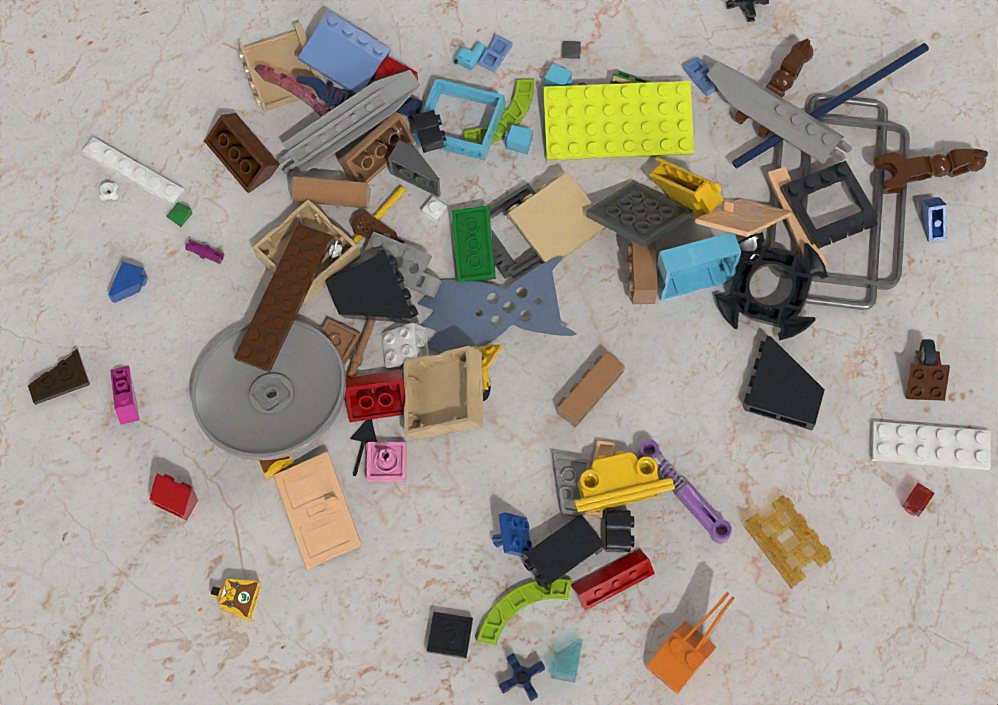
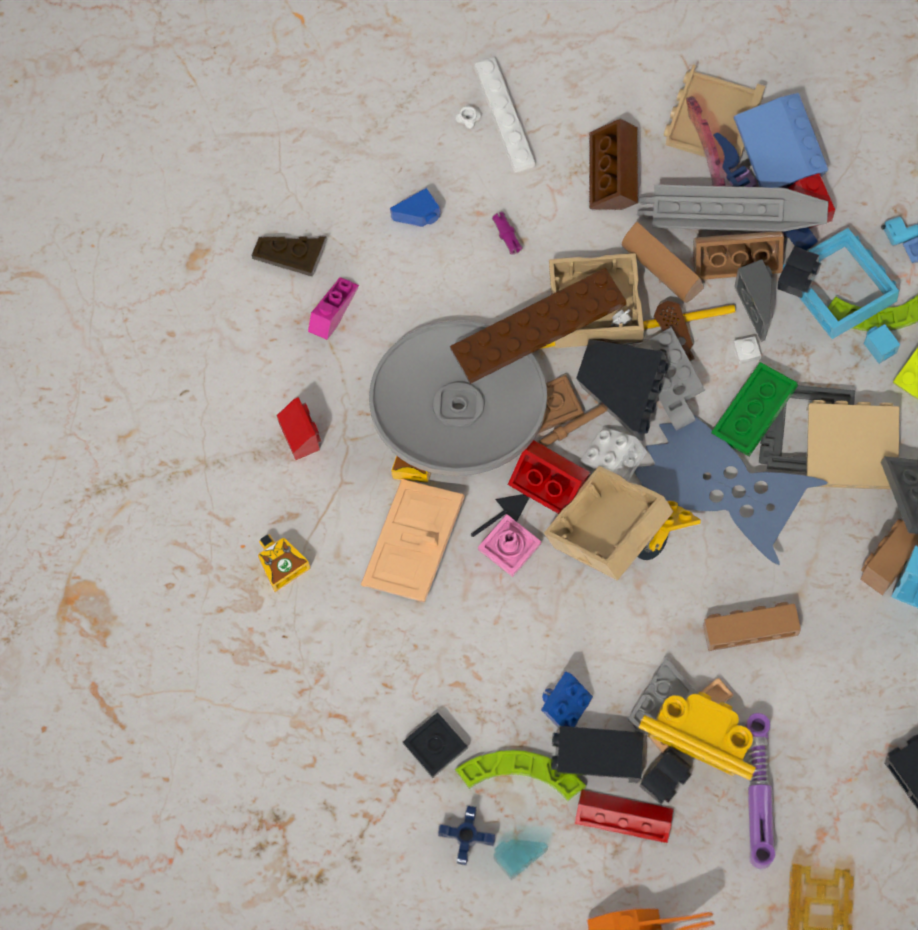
camera: 45 degrees right, 0 degrees up
(179, 214) = (513, 183): green slope -> none

